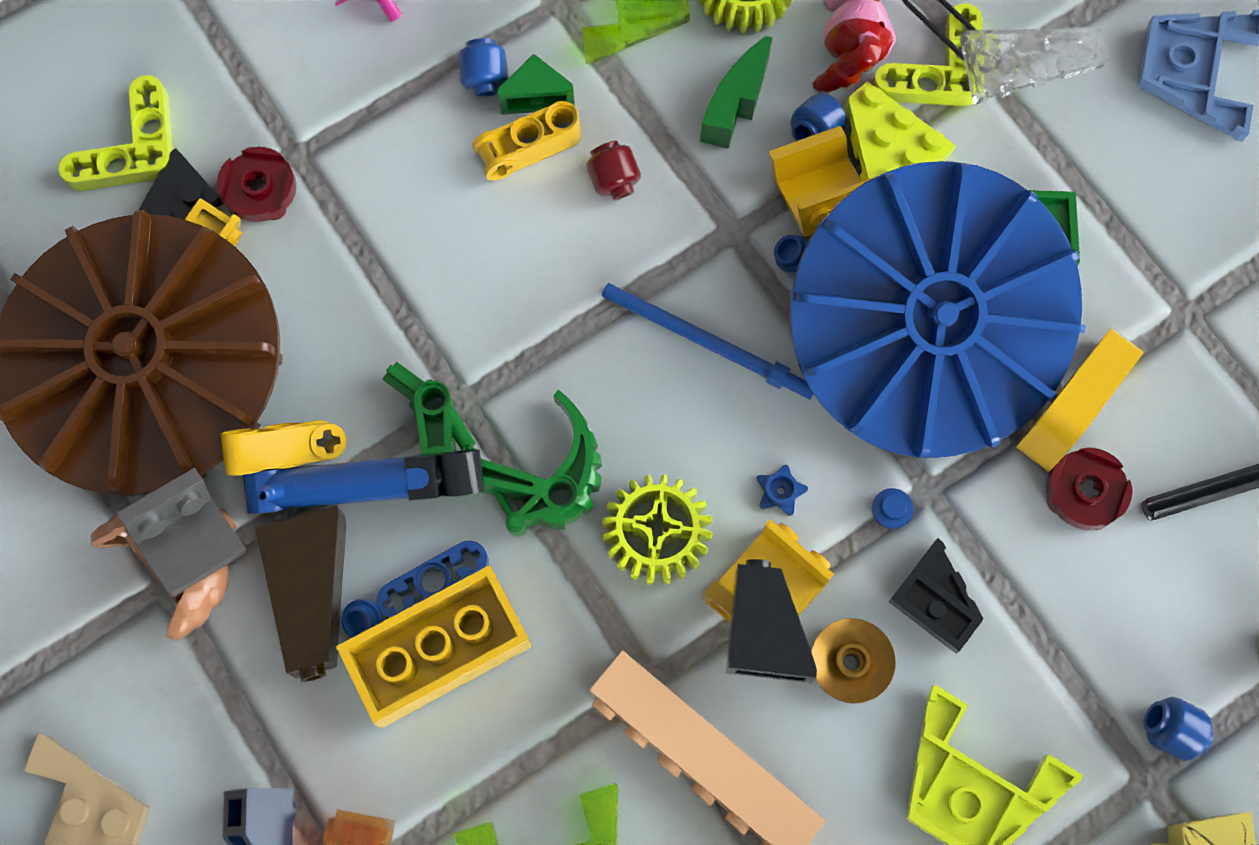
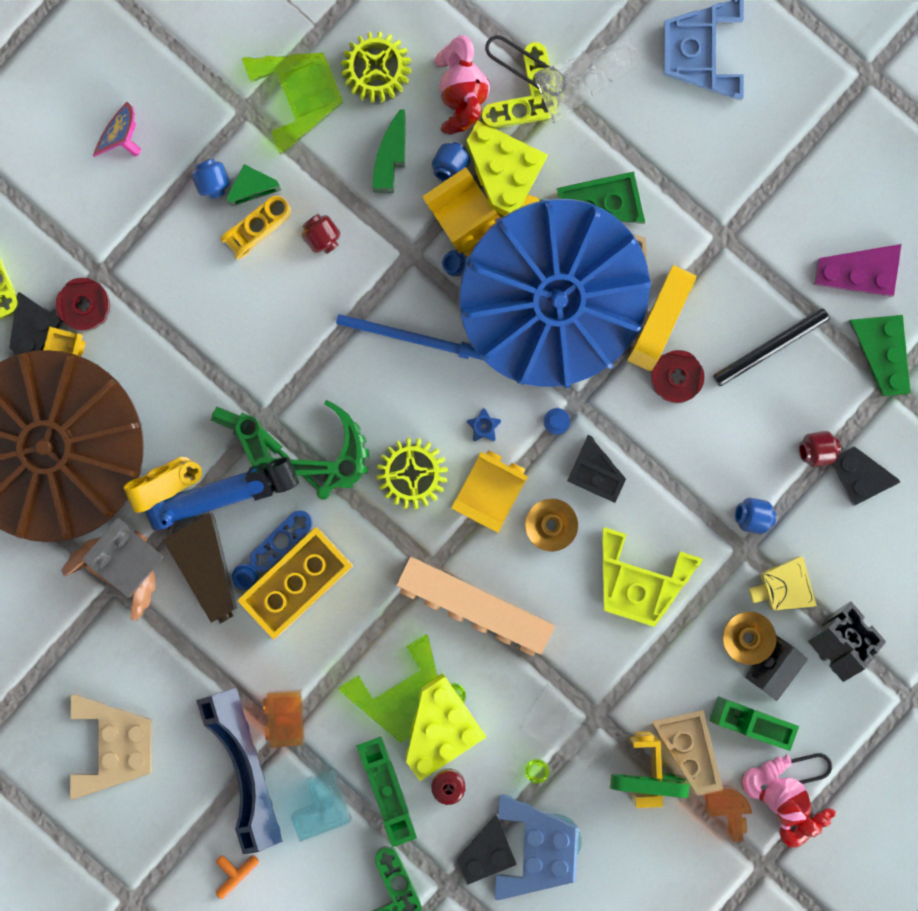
camera: 10 degrees left, 15 degrees up
(766, 628) = (492, 522): black slope -> none

